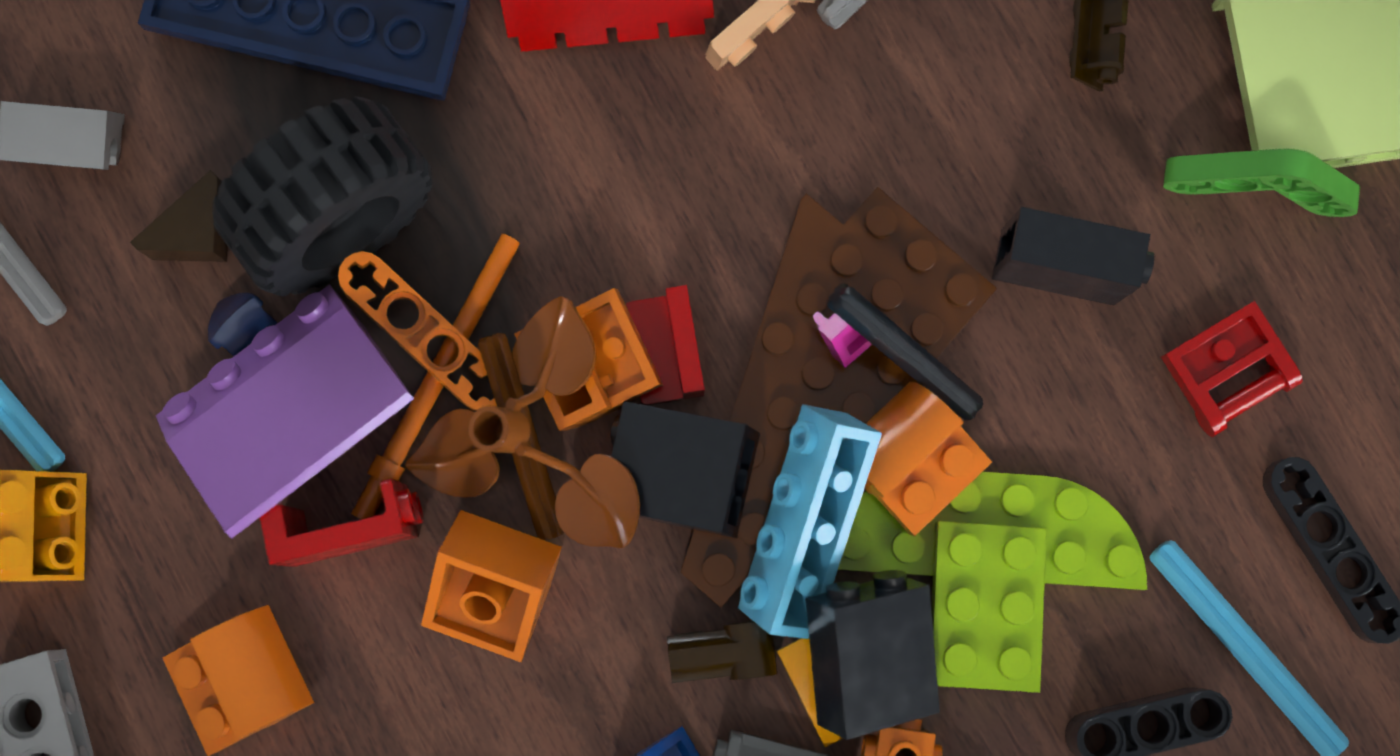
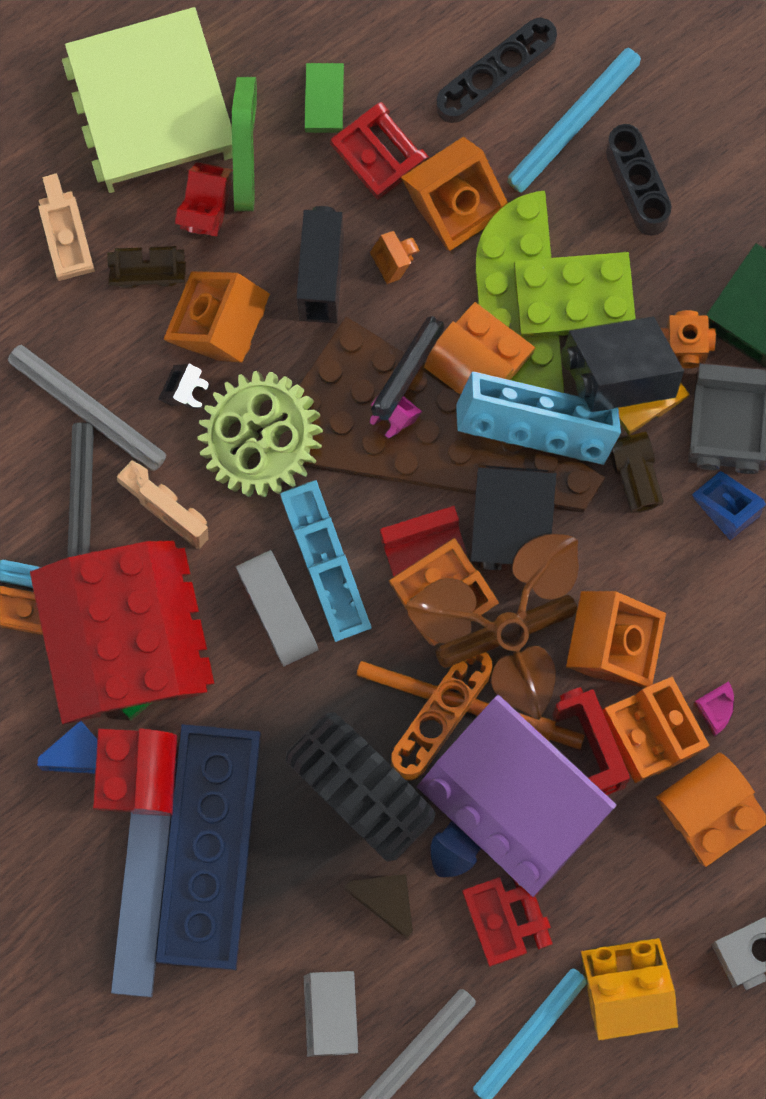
camera: 90 degrees left, 5 degrees down
(134, 366) = (496, 924): none -> red plate
(353, 615) = (654, 730): none -> orange brick
(379, 711) = (717, 707): none -> dark pink tile
(604, 140) = (277, 608): none -> light grey beam
(661, 213) = (325, 560): none -> medium azure slope
(887, 133) = (276, 462): none -> yellowish green gear
(927, 56) = (181, 384): none -> tile
(1019, 118) = (217, 315): none -> orange slope
(1075, 365) = (393, 256): none -> orange tile
(1158, 464) = (456, 192): none -> orange slope
(1183, 119) = (204, 199): none -> red brick
(1318, 303) = (324, 97): none -> bright green slope

